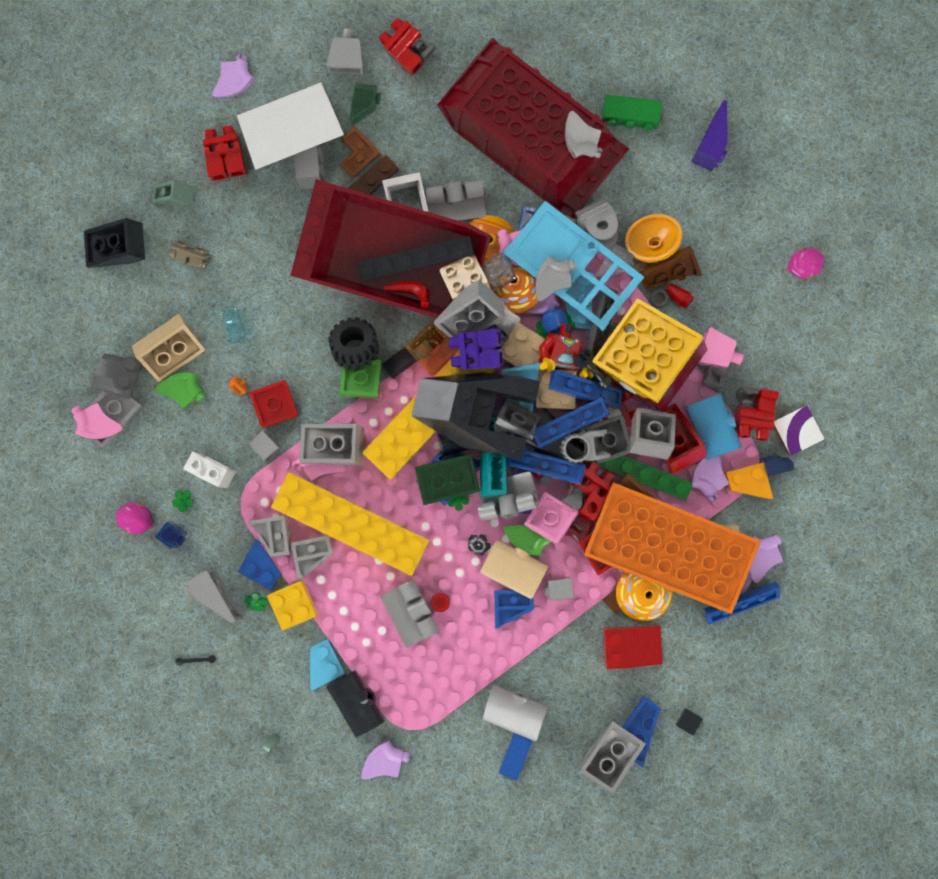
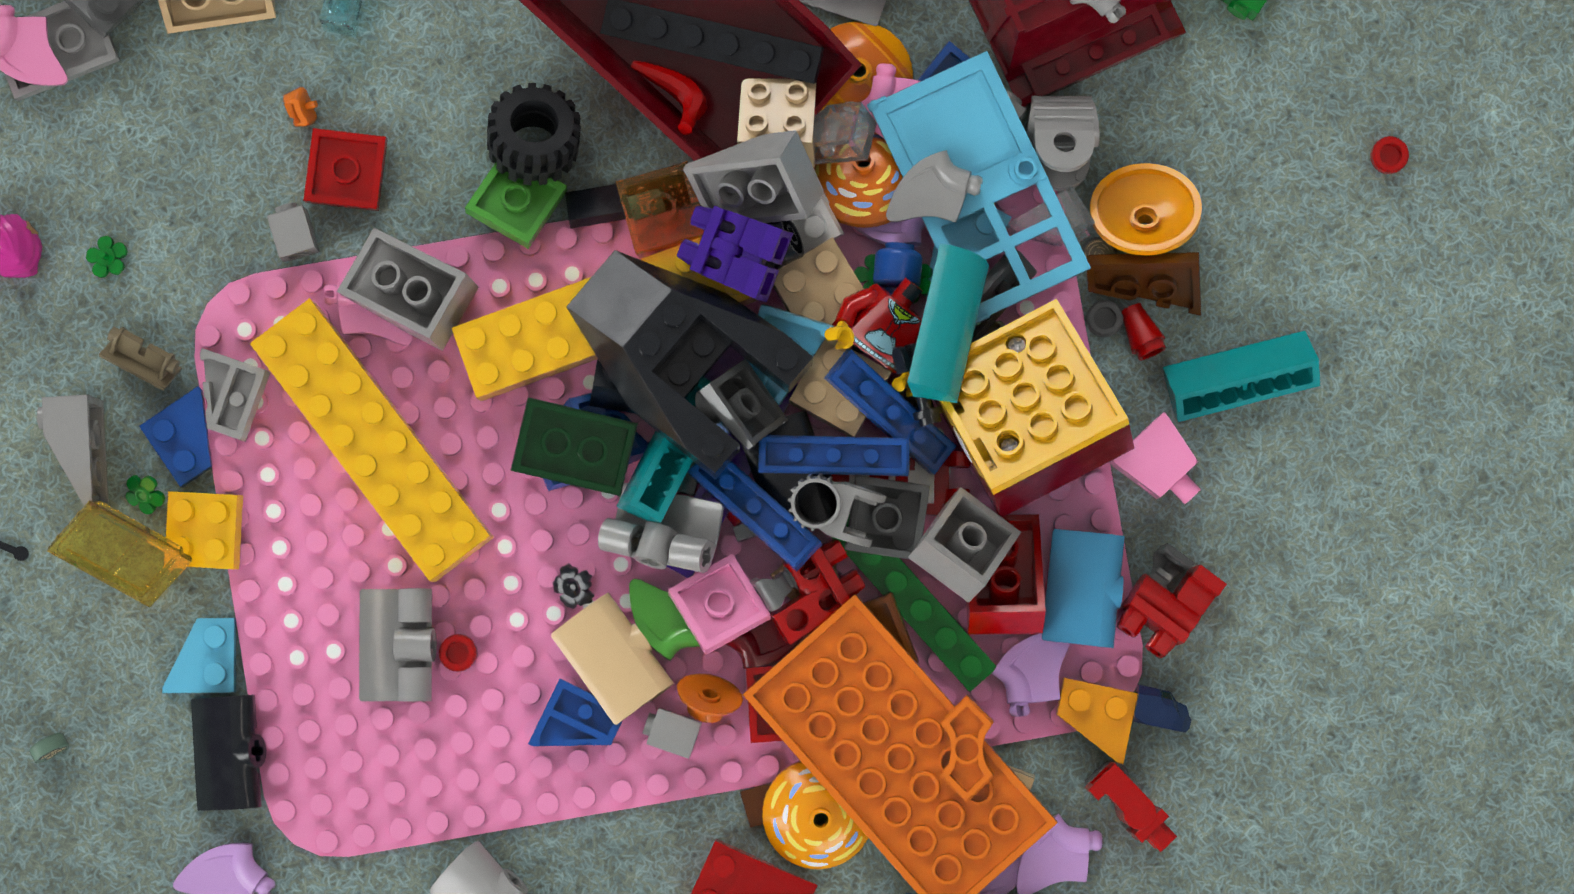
camera: 30 degrees right, 0 degrees up
(171, 535) = (58, 307): clear blue brick -> none
(181, 388) = (202, 64): bright green arm -> none
(209, 470) = (181, 229): white window -> none
(227, 540) = (147, 364): none -> dark tan hinge
(259, 635) = (120, 552): none -> clear yellow piece
(310, 554) = (278, 458): light grey wing -> none
(458, 501) = (575, 496): green plant -> none
(568, 563) = (708, 697): none -> orange piece
(594, 335) = (948, 324): none -> teal brick
(698, 519) = (967, 766): none -> orange tile
(712, 147) = (1324, 104): dark purple slope -> none
(713, 378) = (1125, 505): dark grey plate -> none
(735, 293) = (1242, 376): none -> teal brick
(750, 159) = (1389, 155): none -> red tile
(786, 515) = (1132, 805): none -> red hips
(798, 430) = (1229, 670): tile -> none
(806, 263) = (1394, 386): dark pink hair -> none

